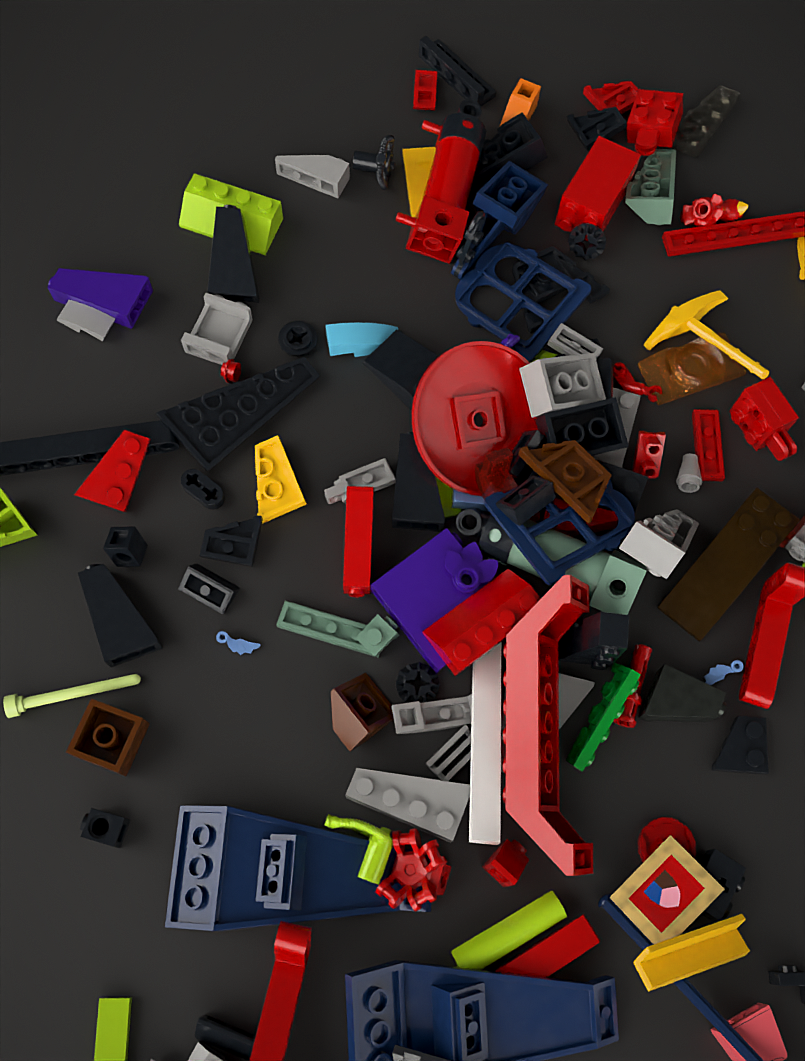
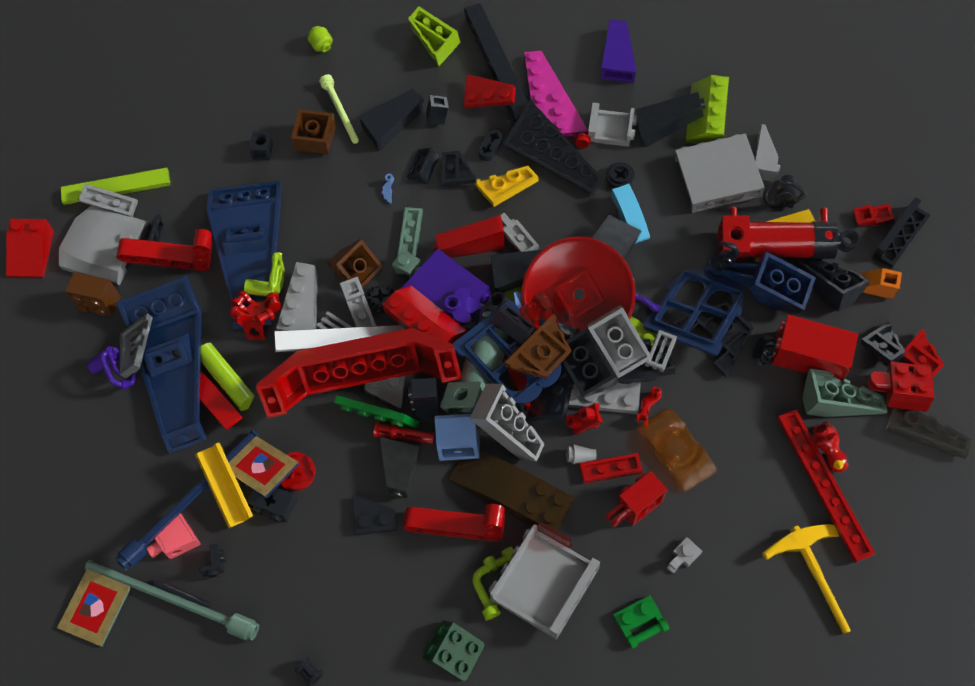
camera: 85 degrees right, 5 degrees down
(86, 318) = (596, 49): light grey slope -> none
(139, 396) = (550, 95): none -> dark pink wing
(329, 222) = (720, 172): none -> light grey panel
(507, 863) = (262, 357): red slope -> none
(659, 611) = (456, 437): none -> medium blue slope
(688, 317) = (716, 435): yellow piece -> none
(719, 672) = (425, 493): medium blue piece -> none

